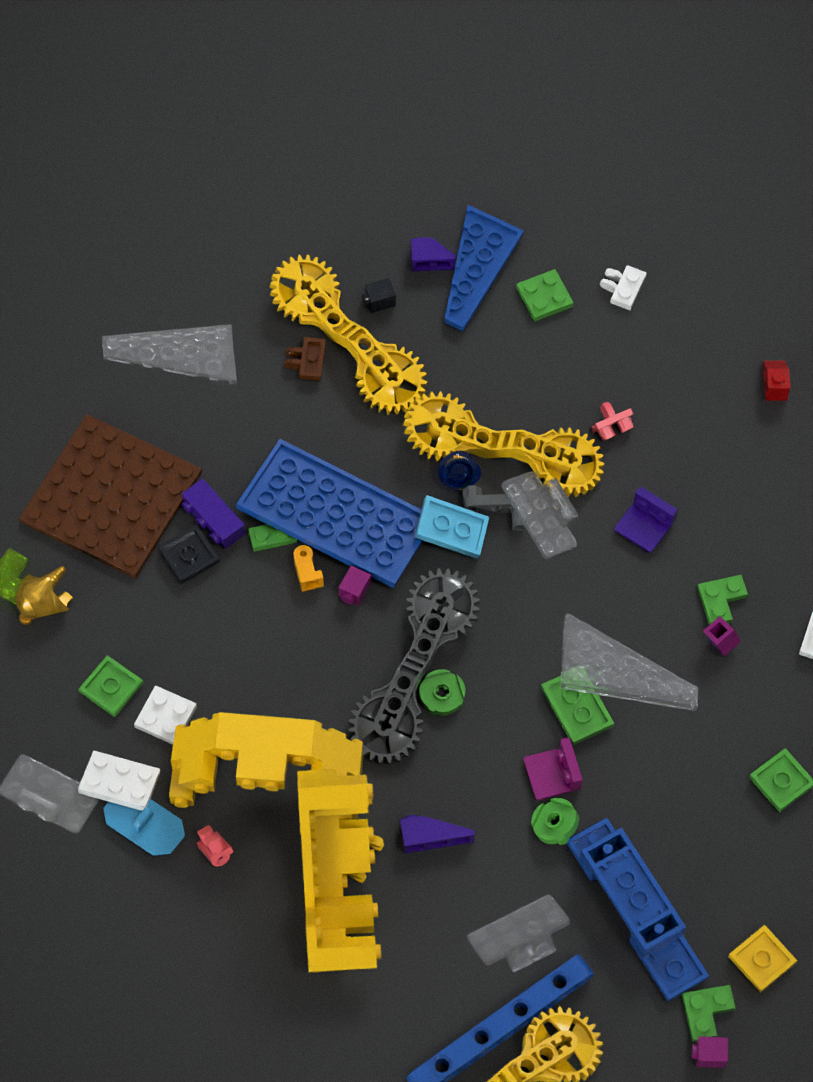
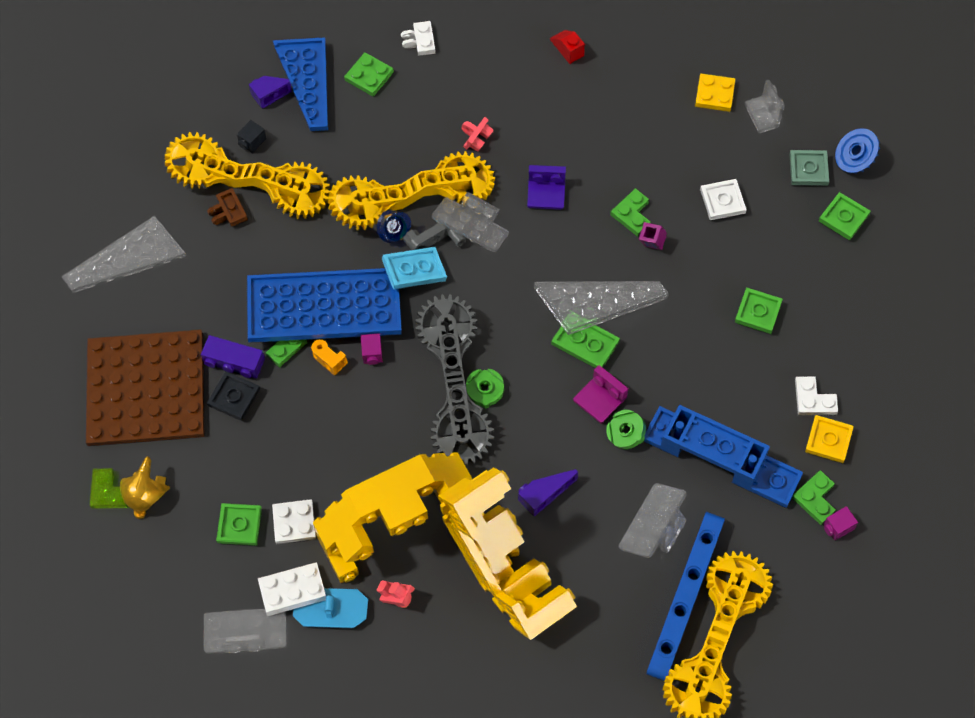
camera: 30 degrees left, 0 degrees up
(770, 907) = (812, 403): none -> white plate

